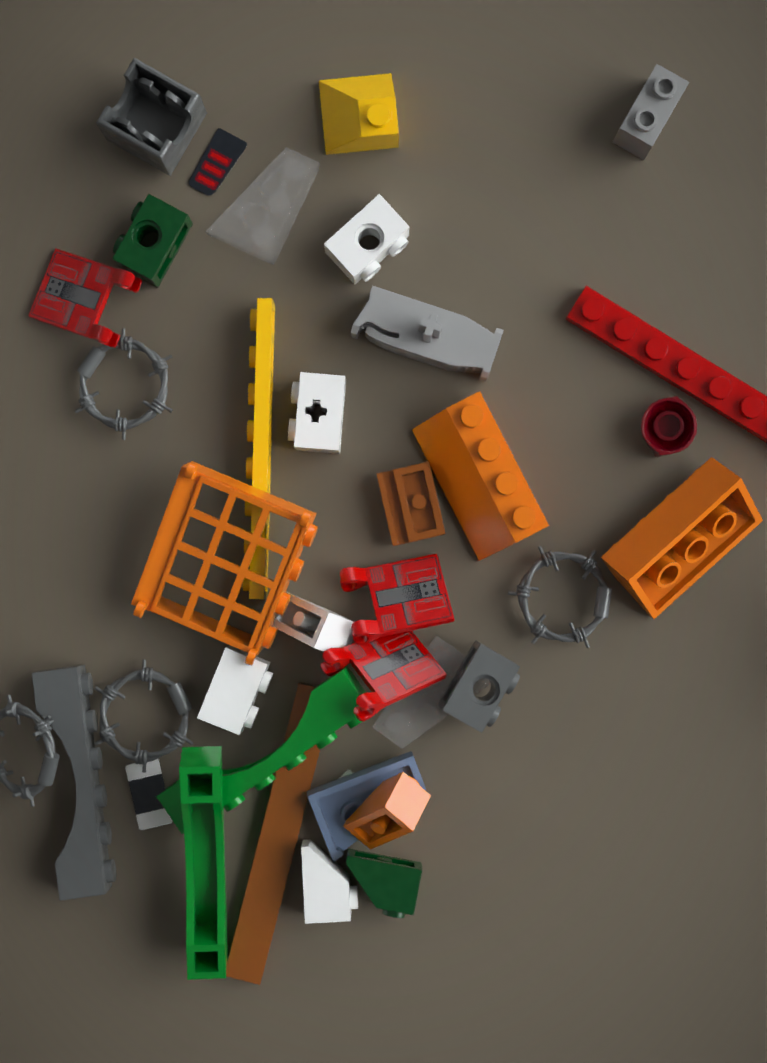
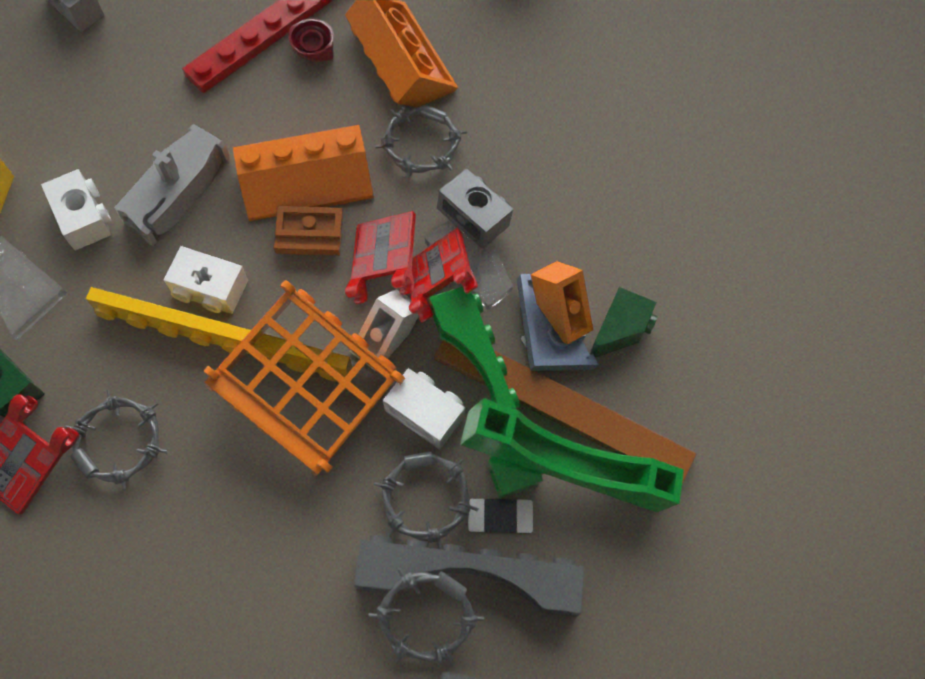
camera: 80 degrees left, 20 degrees down
(325, 887) = (617, 375): white slope -> none

